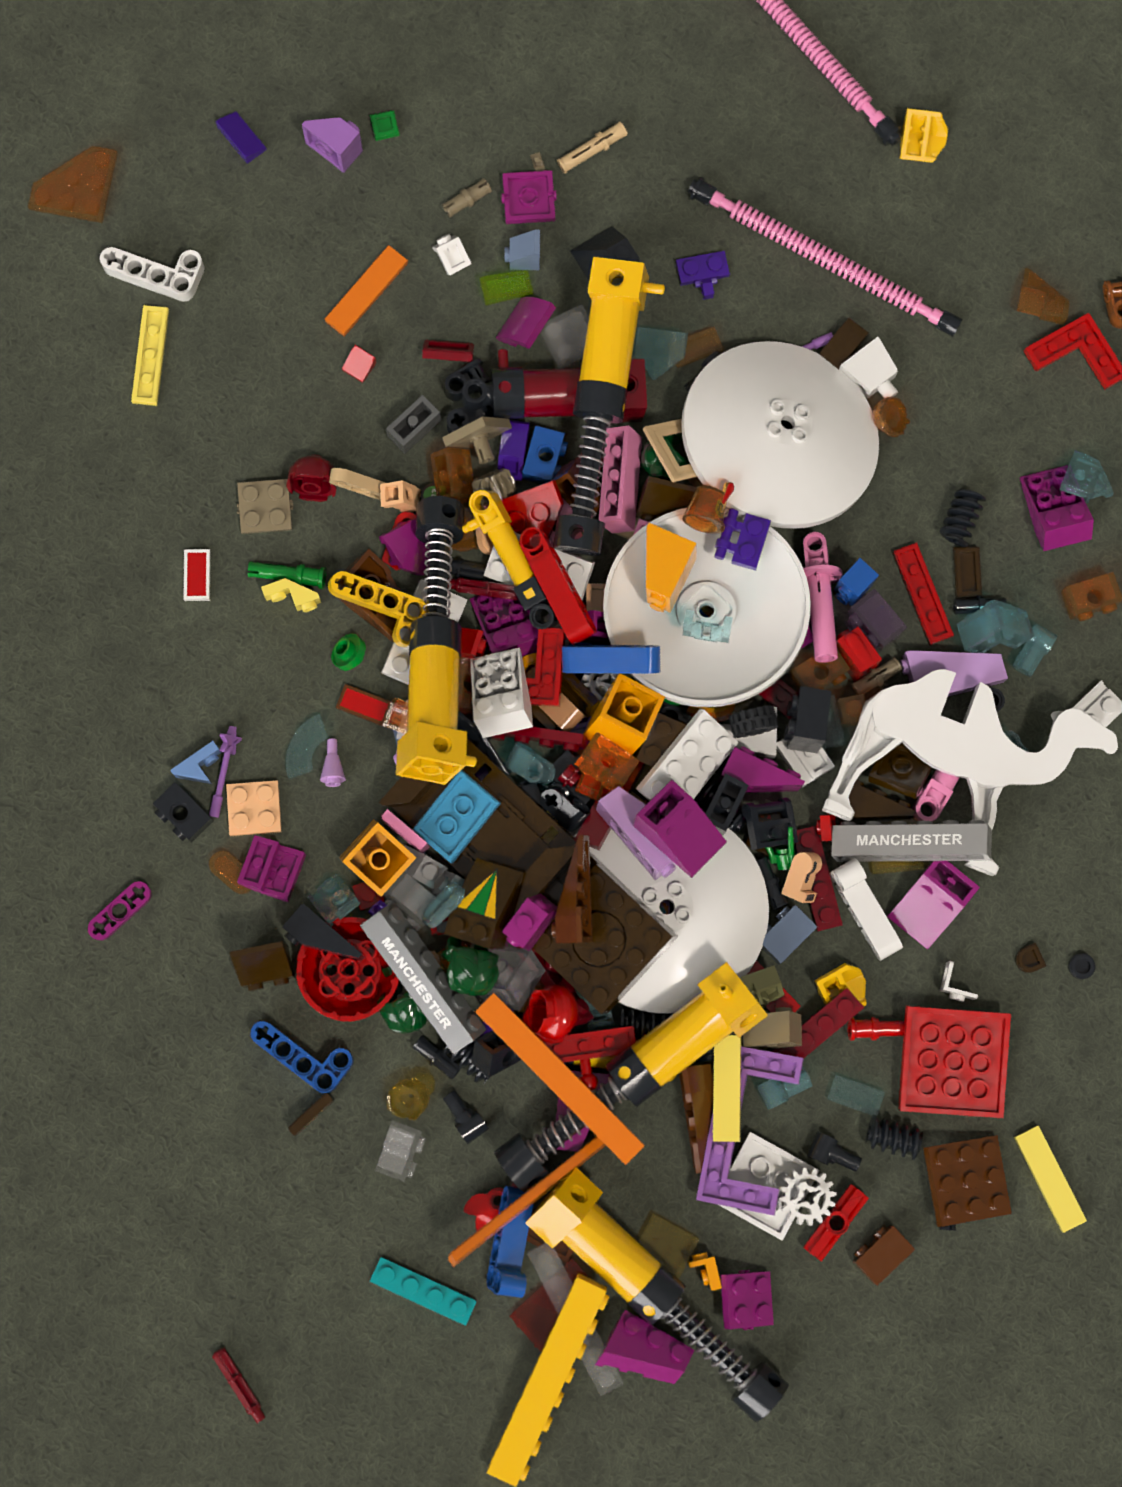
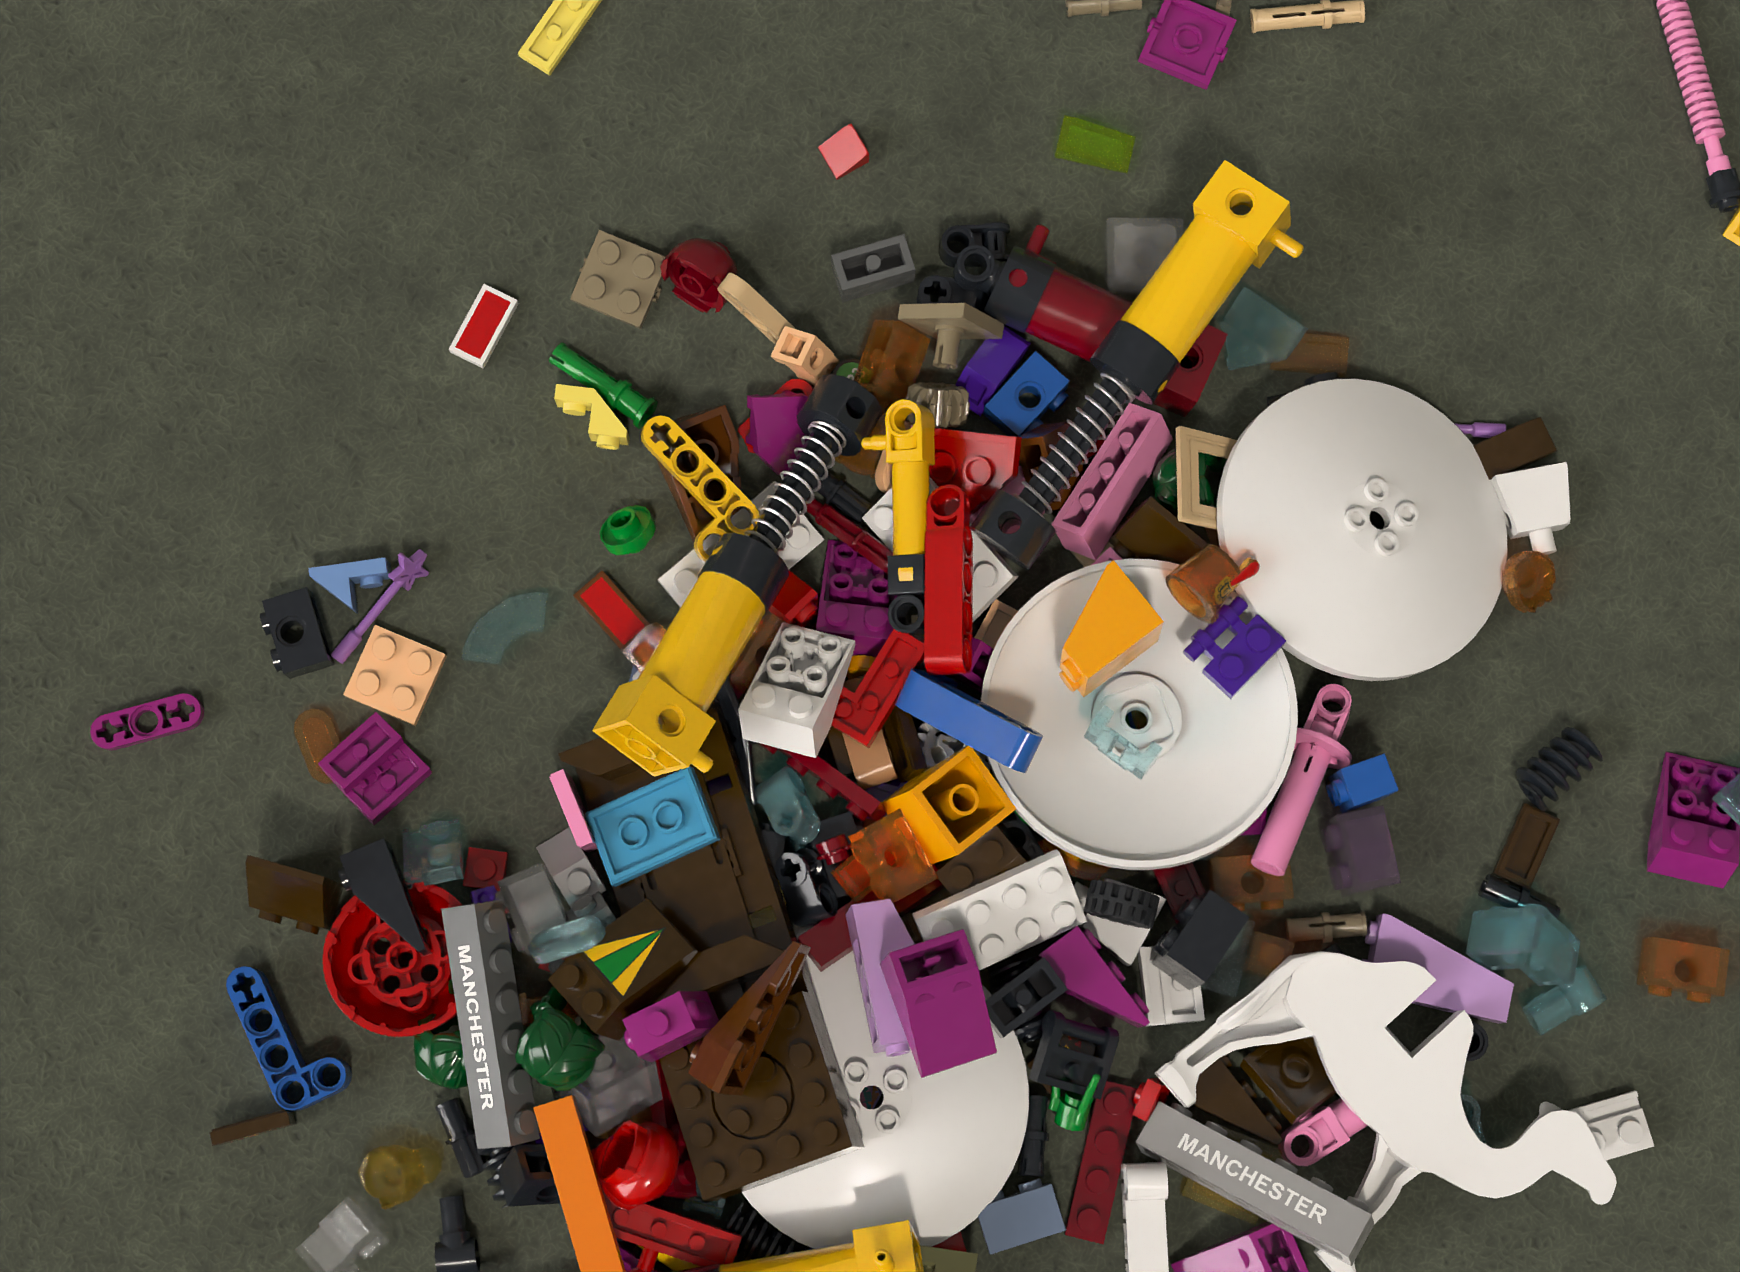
camera: 30 degrees right, 0 degrees up
(332, 770) = (524, 678): lavender cone -> none
(366, 290) = (905, 59): orange tile -> none
(377, 857) = (517, 827): light orange slope -> none
(448, 350) = (971, 192): dark red tile -> none
(451, 253) = (1044, 65): white bracket -> none
(524, 251) = (1142, 110): sand blue slope -> none
(526, 322) = (1095, 205): magenta slope -> none
(607, 244) = (1258, 156): black slope -> none
(703, 271) = (1372, 256): dark purple hinge -> none
(708, 195) = (1432, 155): bright pink hose -> none
(801, 877) = (1080, 1150): light nougat leg -> none
(857, 653) = (1314, 881): red torso -> none
(923, 593) = (1449, 845): red tile -> none

